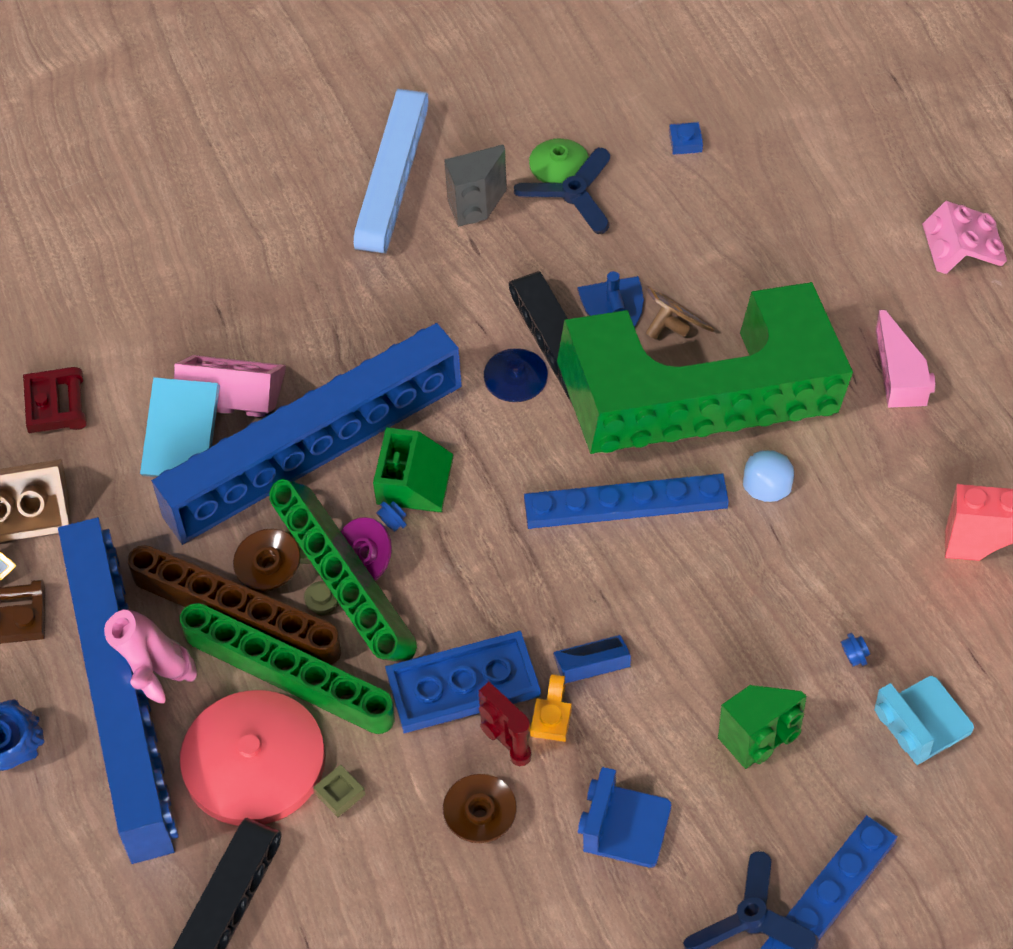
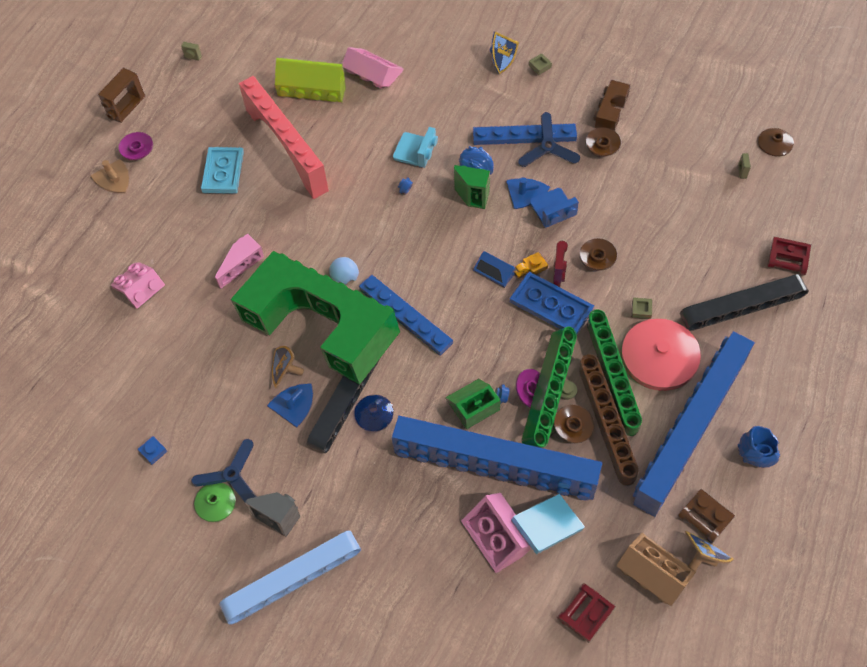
camera: 130 degrees left, 5 degrees up
(148, 652) = (680, 406): bright pink piece -> none
(698, 821) = (524, 189): none -> blue shield
(807, 770) = (476, 158): none -> blue hair

